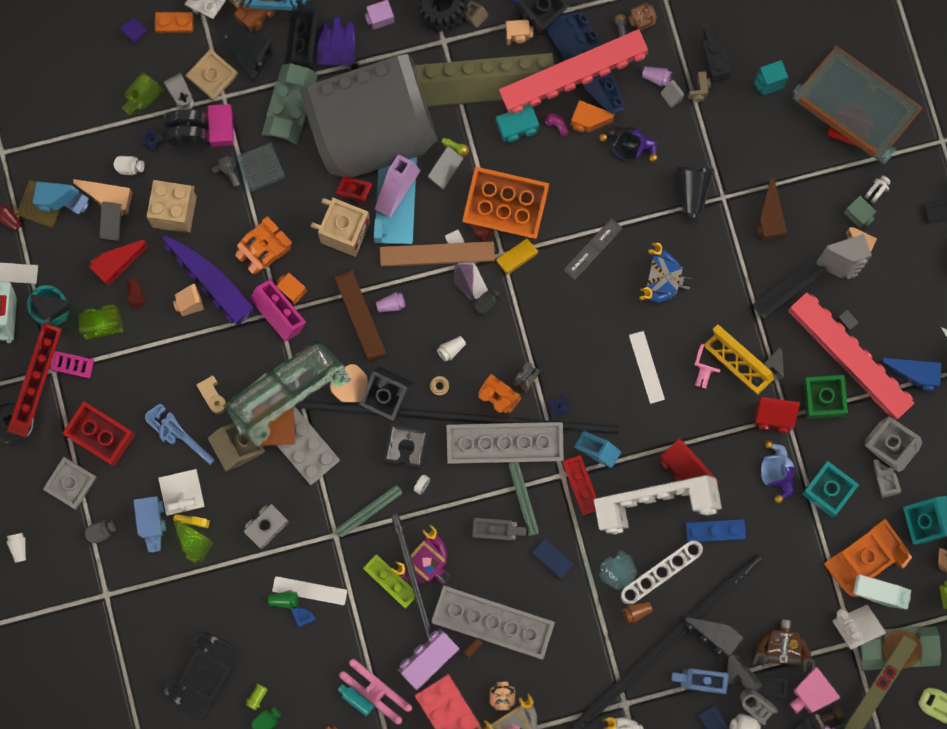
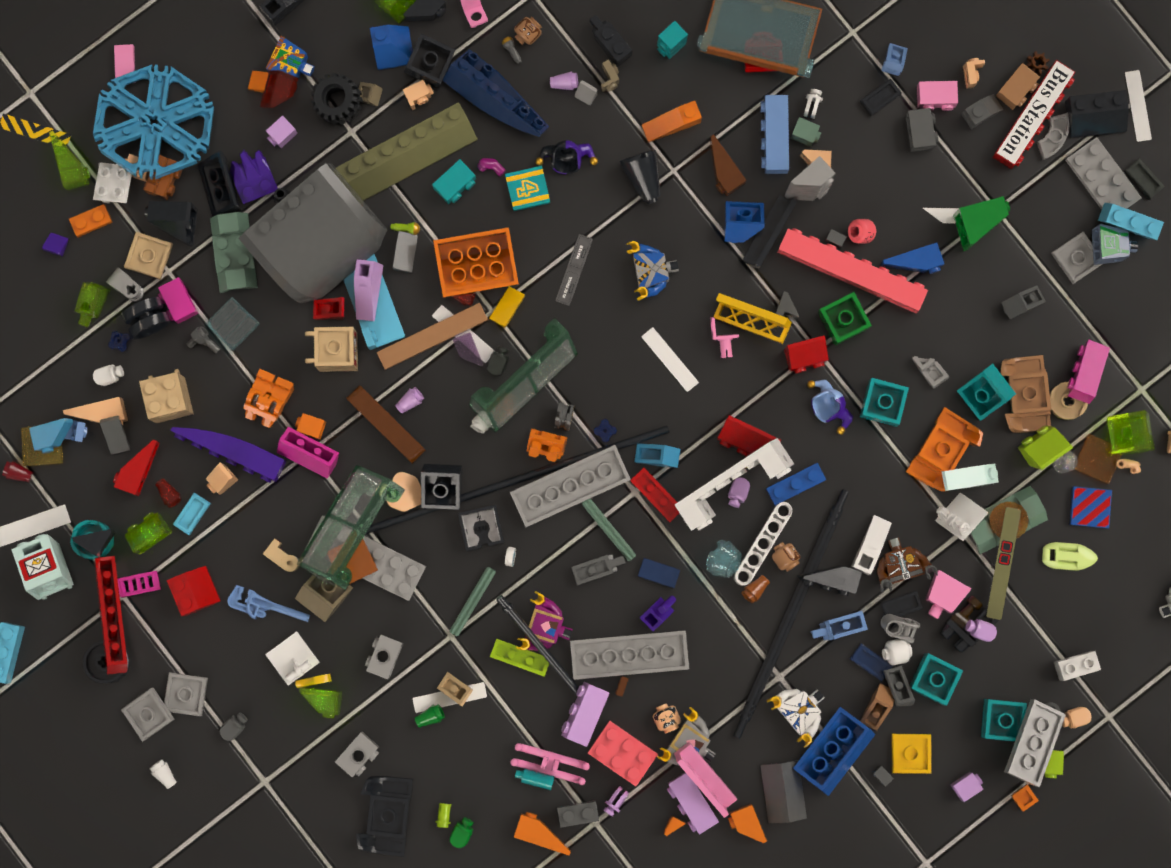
camera: 25 degrees left, 5 degrees up
(27, 486) = (147, 714): none -> light grey tile
(98, 434) = (192, 638): red brick -> none
(118, 392) = (193, 591): none -> red slope
(148, 322) = (191, 513): none -> medium azure tile
(150, 522) = (275, 698): medium blue hinge -> none
(190, 606) = (347, 760): none -> light grey brick
(302, 616) = (453, 723): blue tile -> none
(317, 584) = (455, 689): none -> tan slope
(439, 379) = (483, 453): tan plate -> none
(505, 329) = (500, 406): none -> windscreen
(536, 594) = (658, 612): none -> dark purple brick
(574, 71) = (487, 112): coral brick -> none
(582, 157) = (527, 188): none -> teal tile
(590, 117) = (518, 148): orange slope -> none
(658, 515) = (738, 492): none -> lavender arm
(677, 593) = (786, 556): none -> medium nougat head
(738, 670) = (869, 603): dark grey slope -> none
(741, 152) = (672, 121): none -> orange slope
(762, 617) = (871, 545): none -> white slope
(768, 268) = (743, 220): none -> blue slope
(832, 202) = (775, 134): none -> medium blue brick
(875, 323) = (861, 231): none -> coral head
(893, 443) = (923, 335): light grey slope -> none

